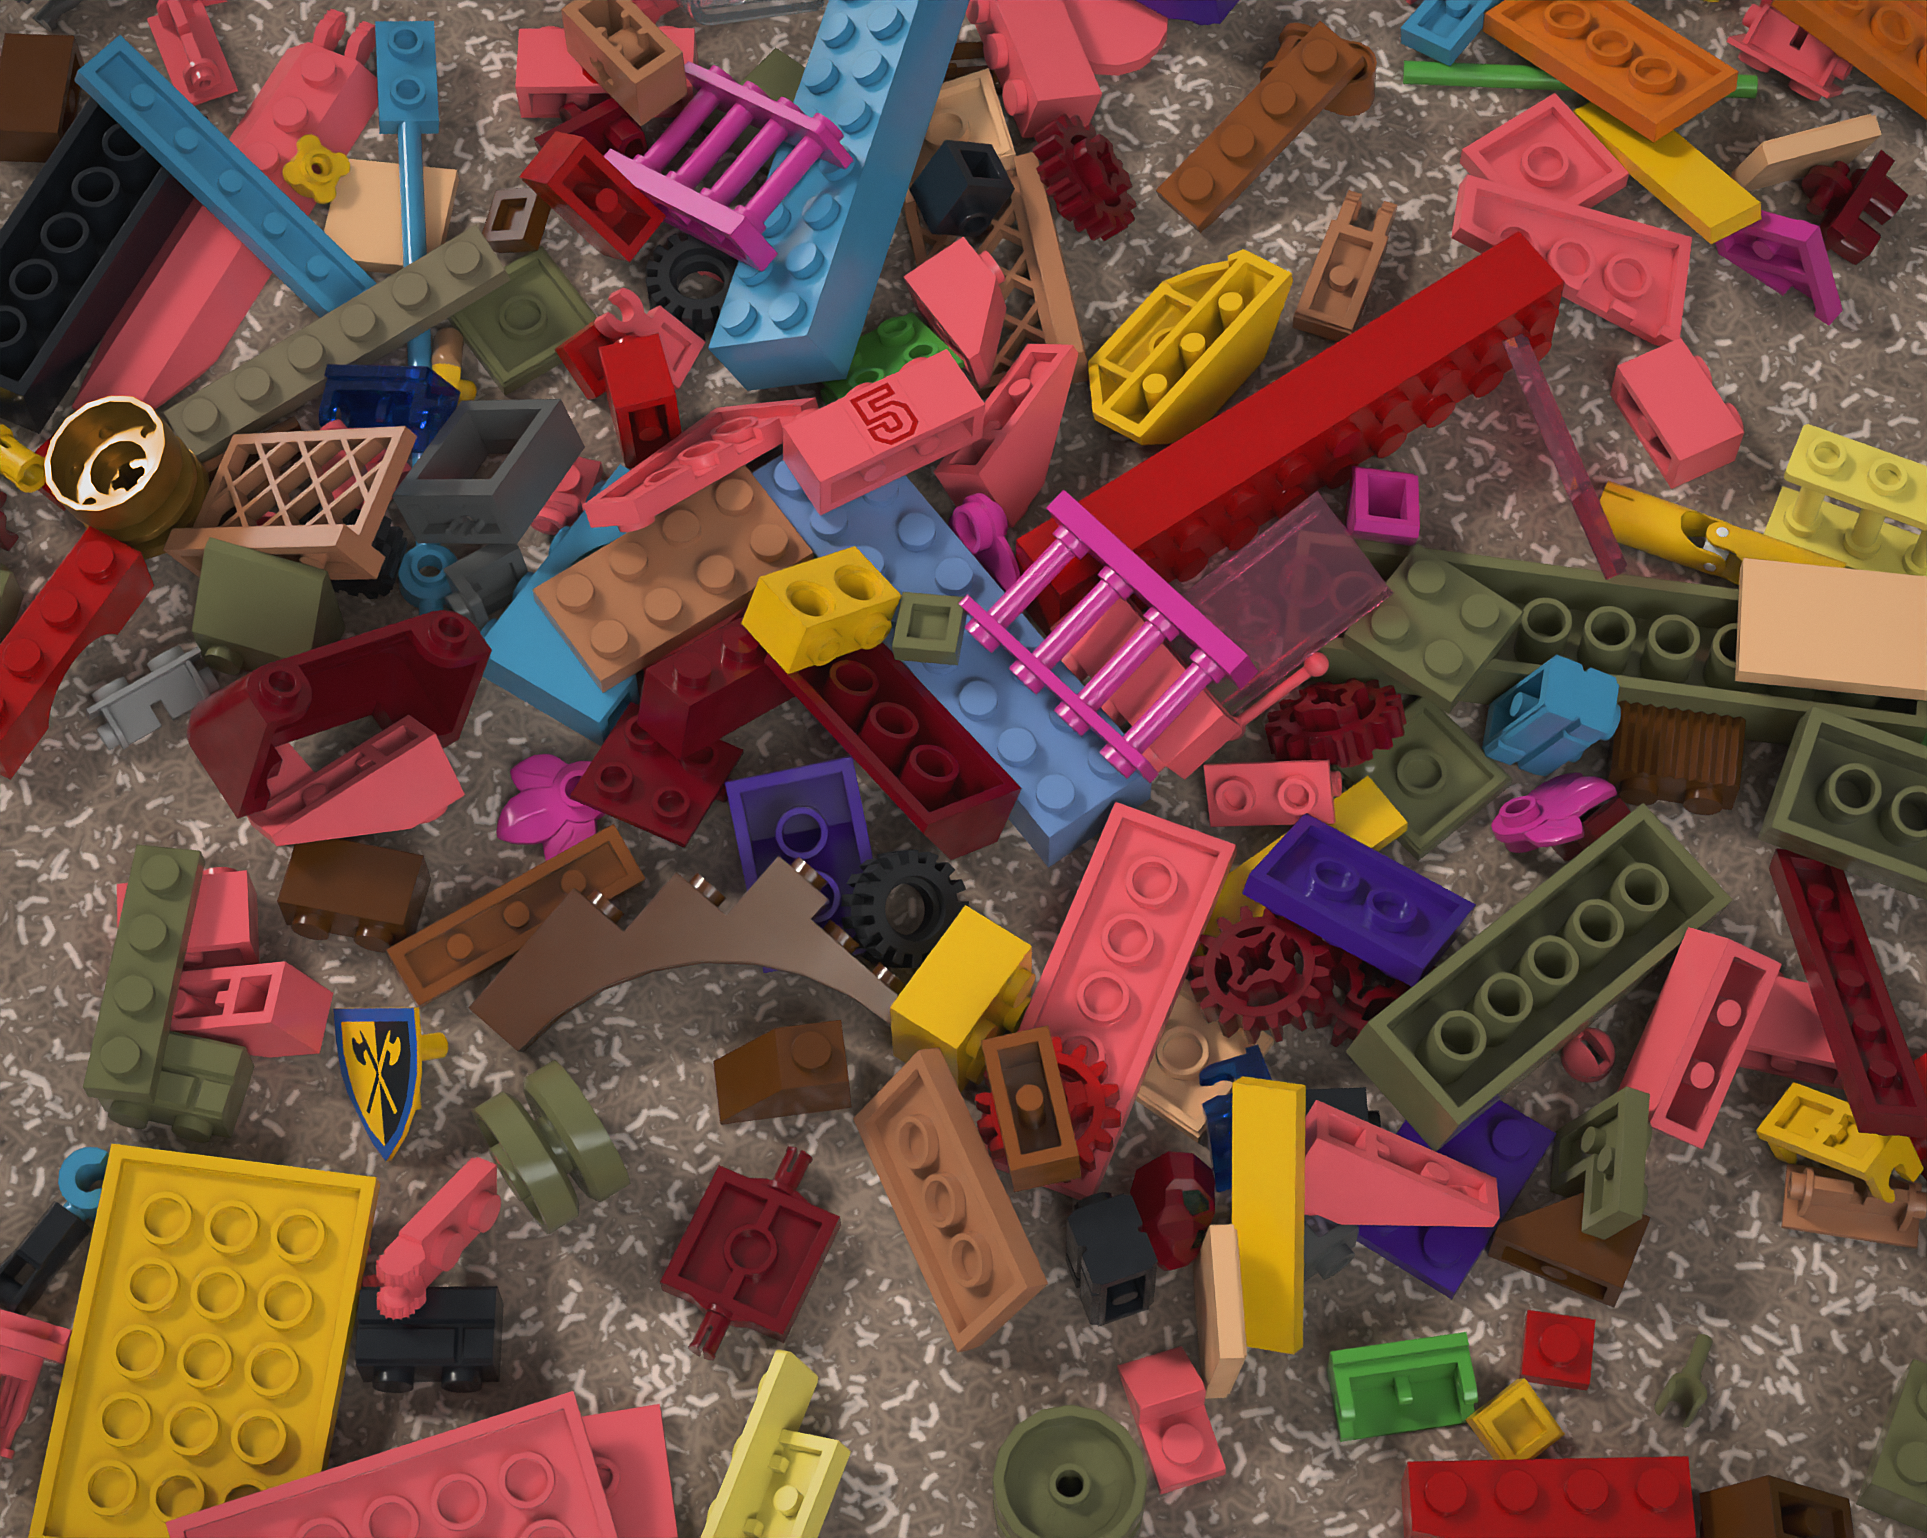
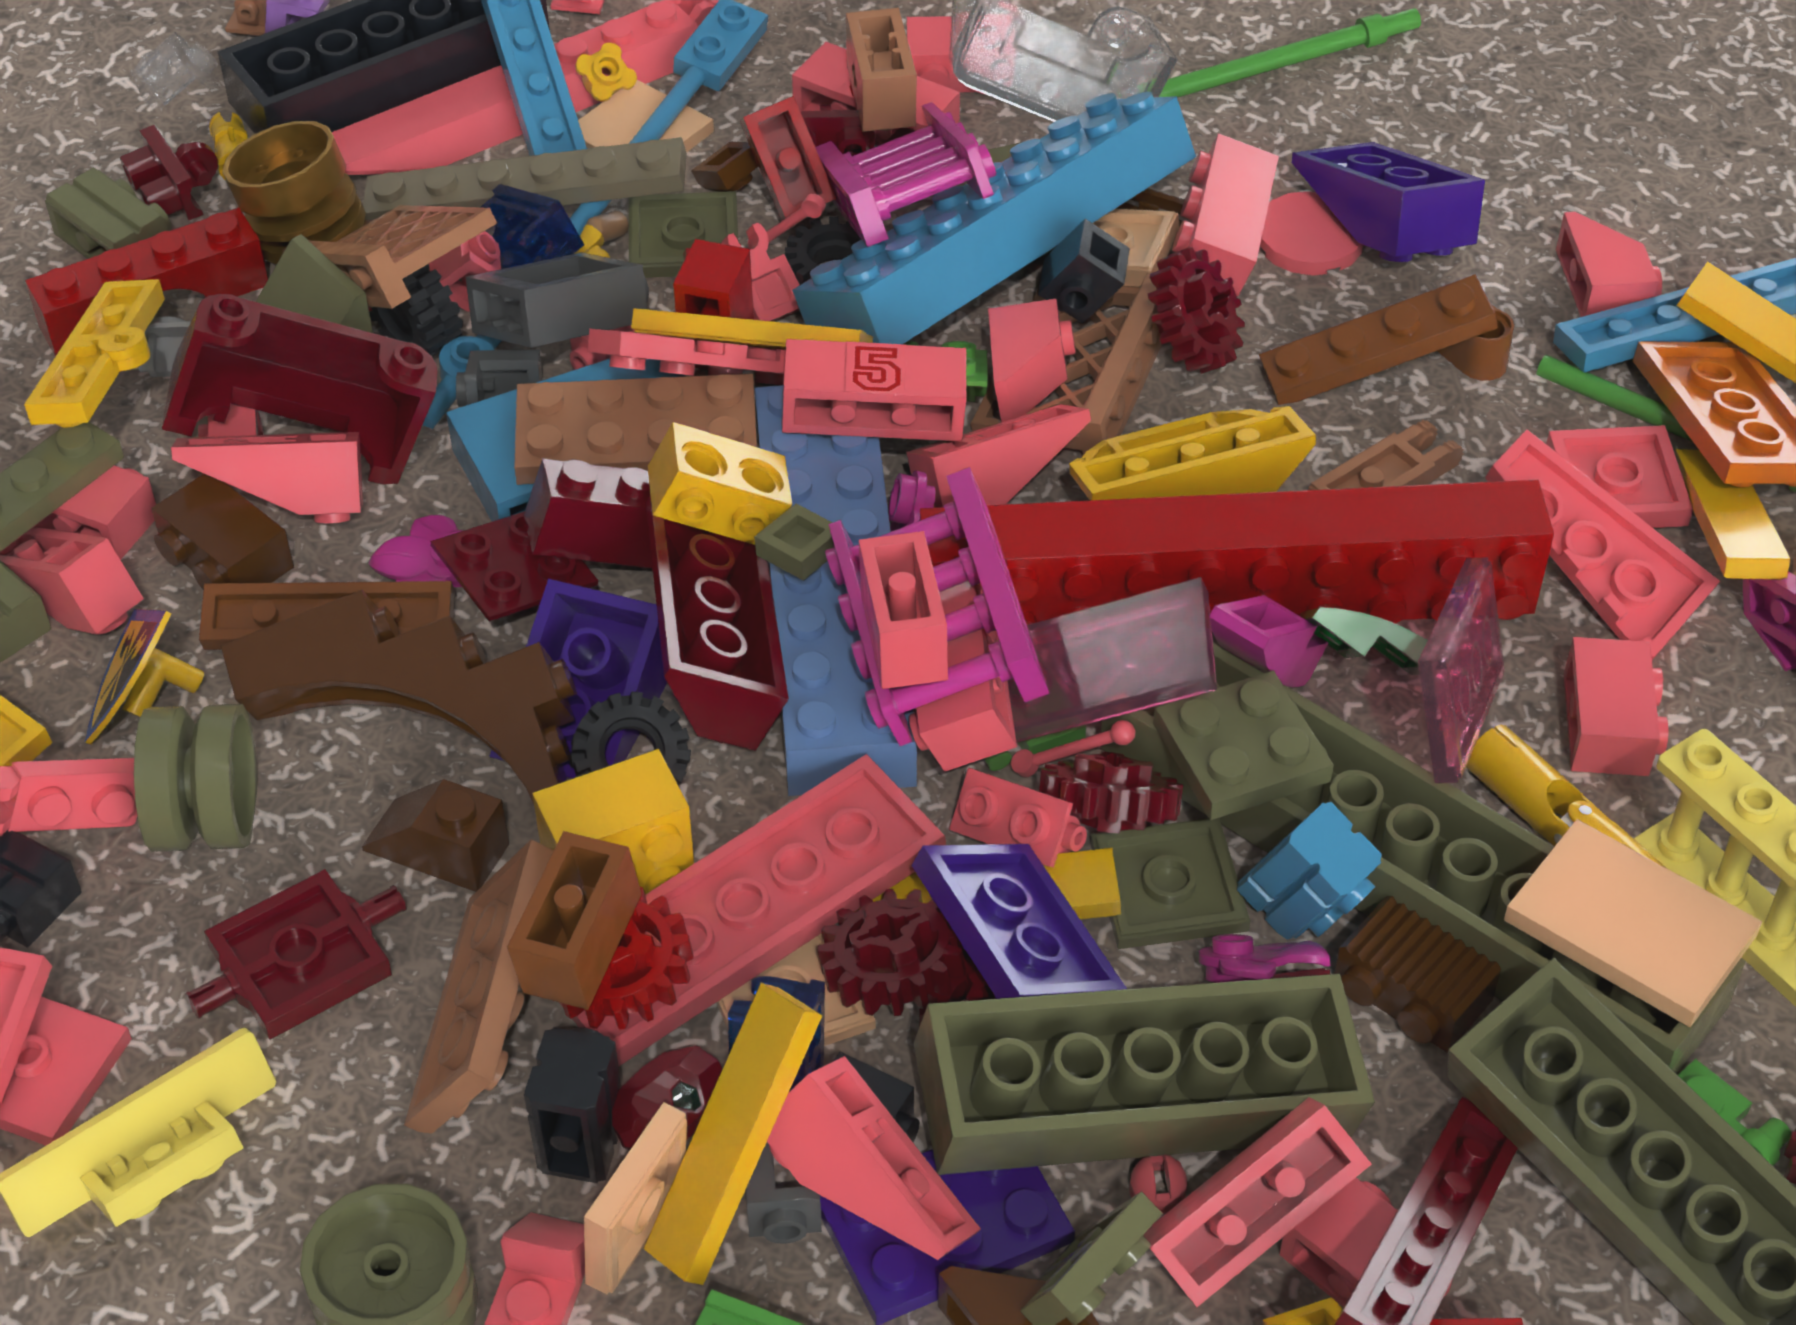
camera: 30 degrees right, 15 degrees down
(106, 768) = (100, 346): none -> yellow hinge
(662, 243) = (811, 207): none -> coral hinge
(717, 422) = (737, 330): none -> yellow tile
(1109, 668) = (903, 610): none -> coral brick
(1456, 457) = (1356, 632): none -> slope

